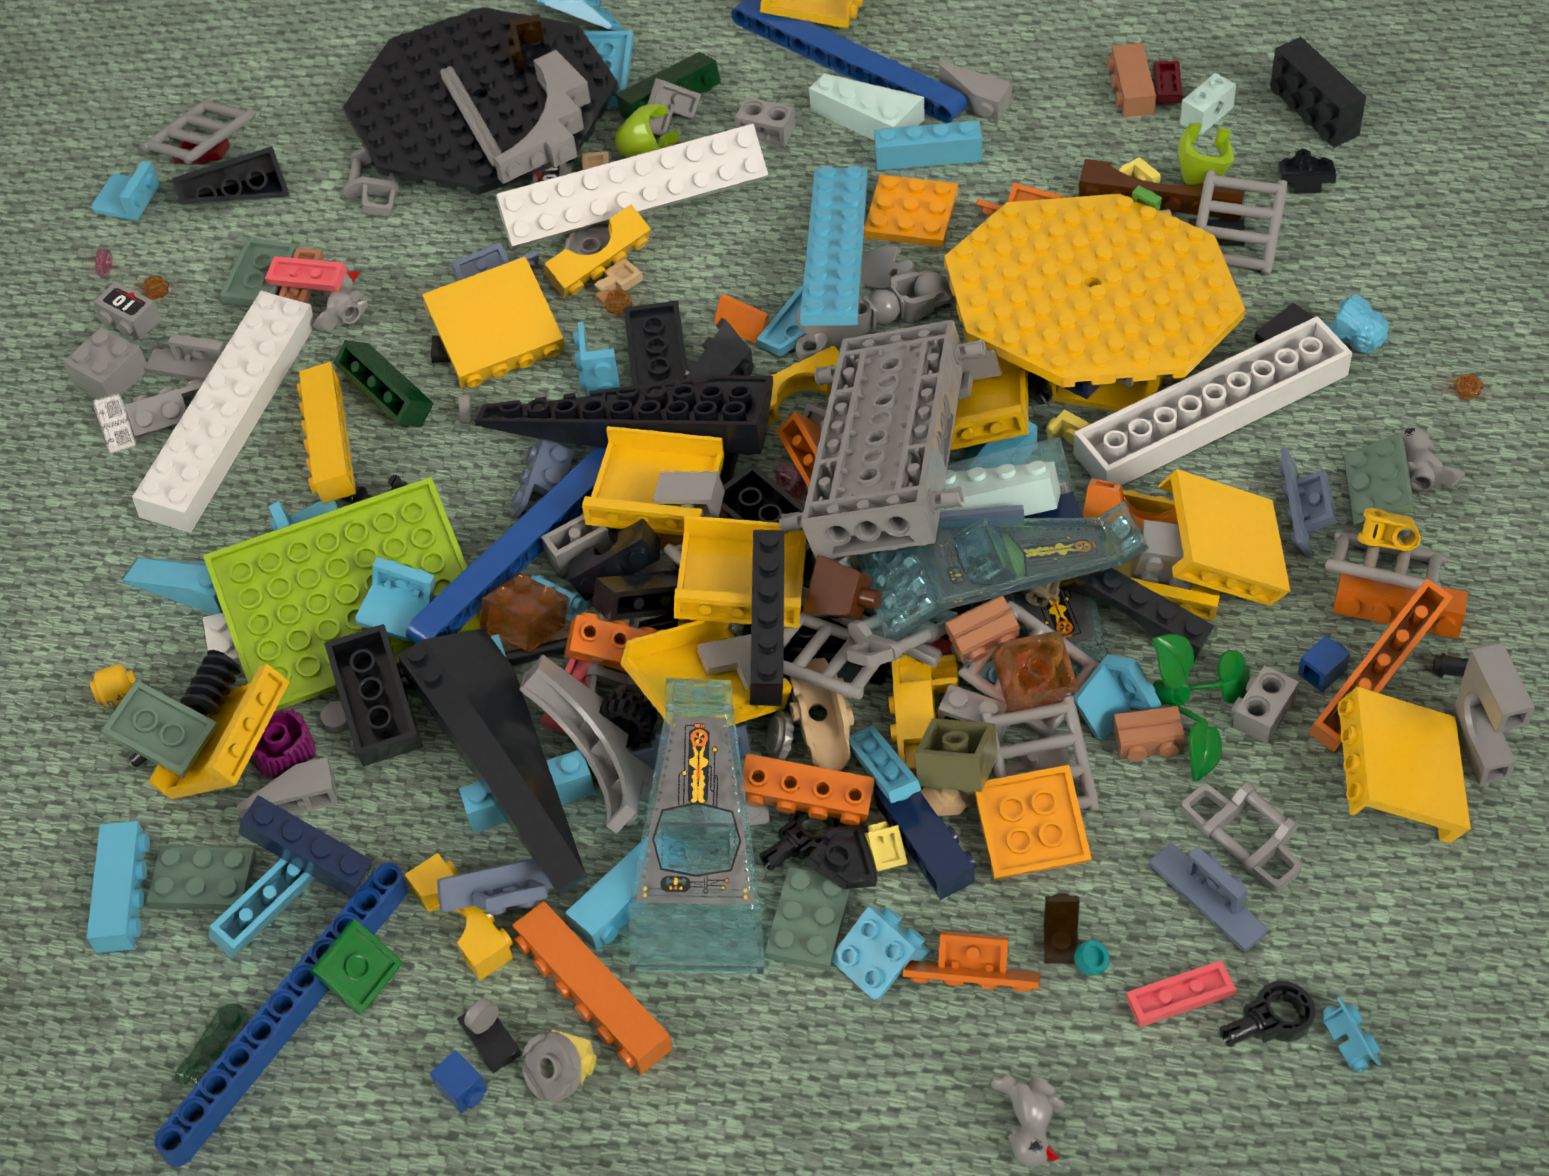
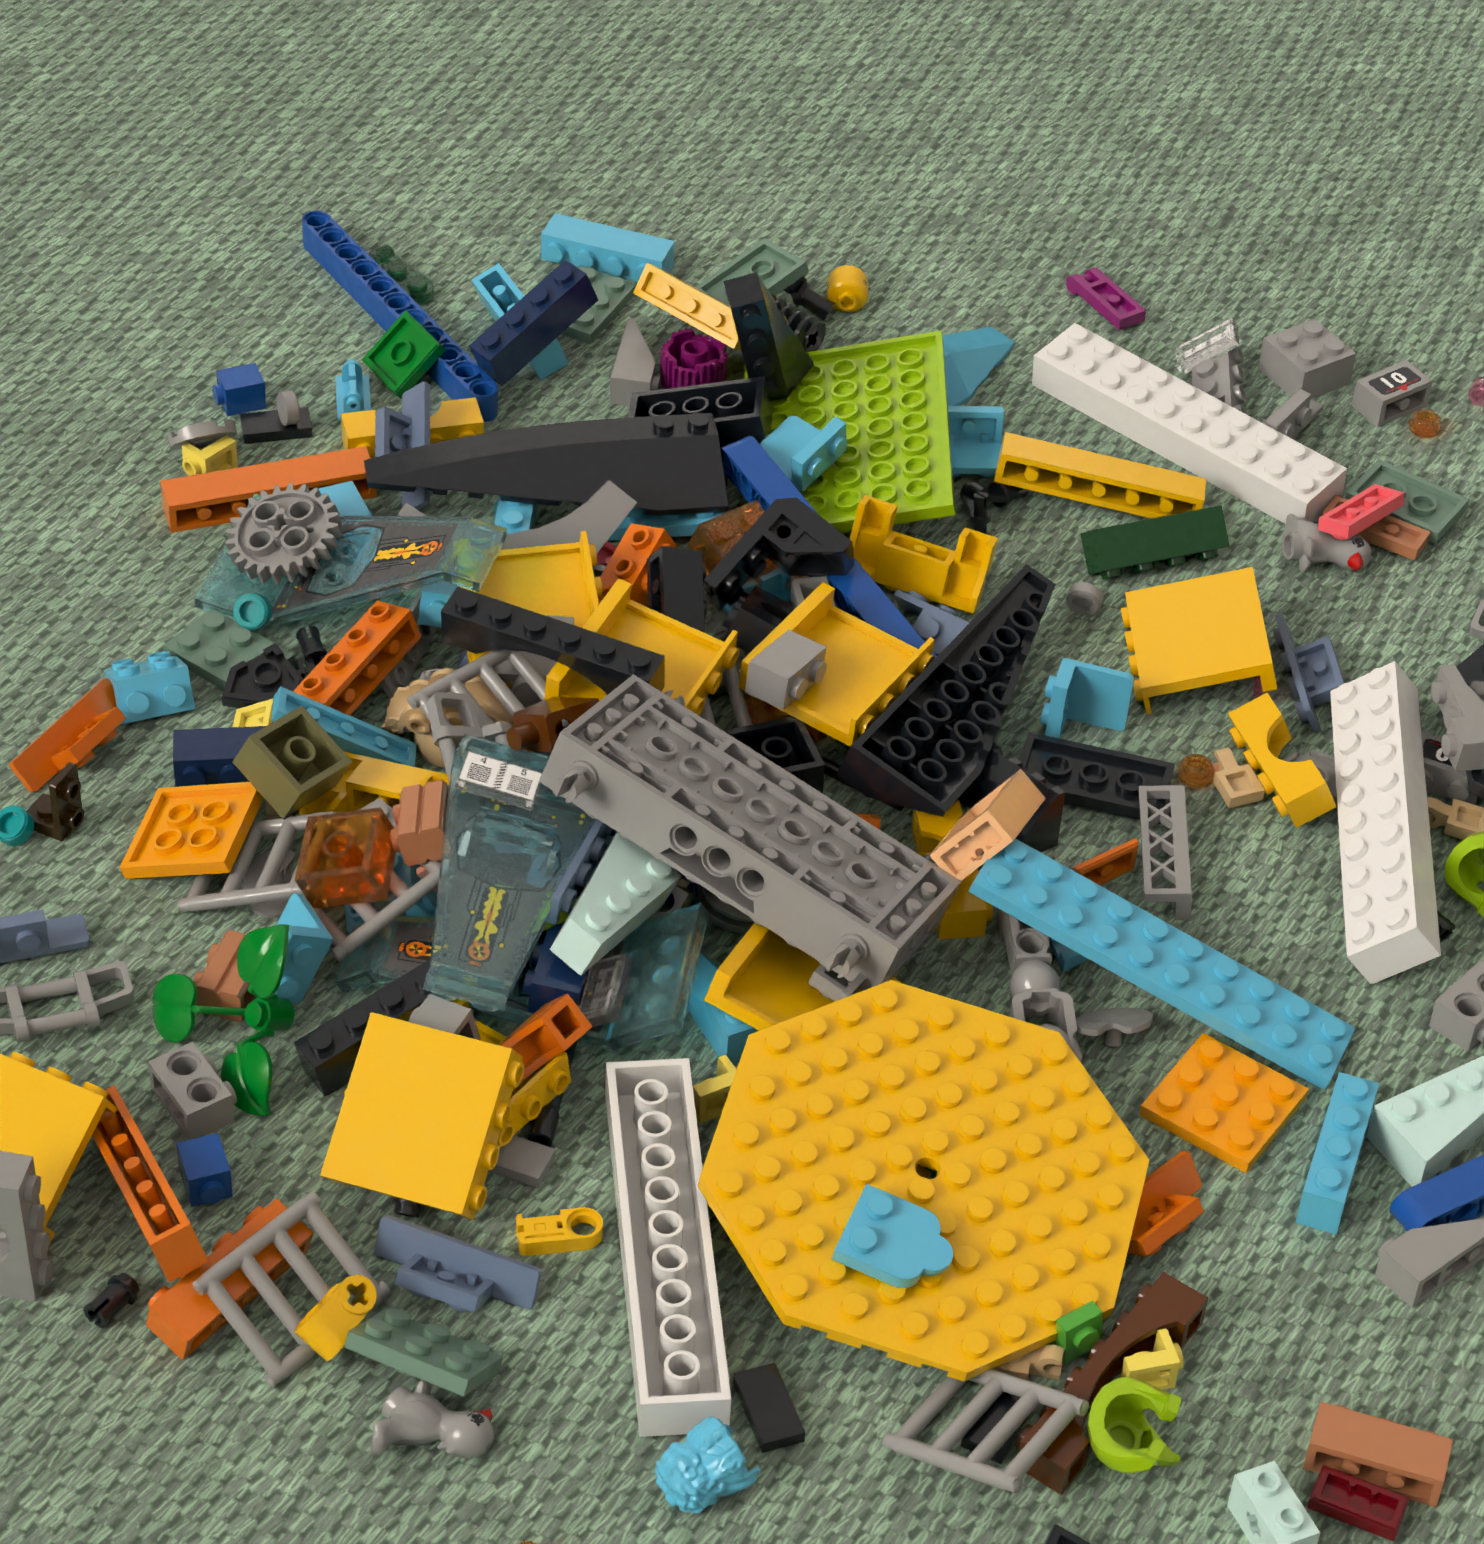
camera: 105 degrees right, 10 degrees down
(55, 515) = (1106, 298): none -> magenta plate
(291, 646) = (766, 337): none -> black wedge
(421, 994) = (352, 389): none -> medium azure hinge
(483, 512) = (917, 565): none -> yellow bracket
(552, 556) = (791, 539): none -> black bracket
(654, 908) = (284, 533): none -> light grey gear
(711, 284) = (1178, 866): none -> light grey fence
(763, 909) = (252, 611): none -> teal tile
(822, 323) = (988, 826): none -> light nougat window
(946, 568) = (499, 780): none -> tile
(1165, 273) = (892, 1240): none -> medium azure plate
(1234, 471) = (555, 1232): none -> yellow piece

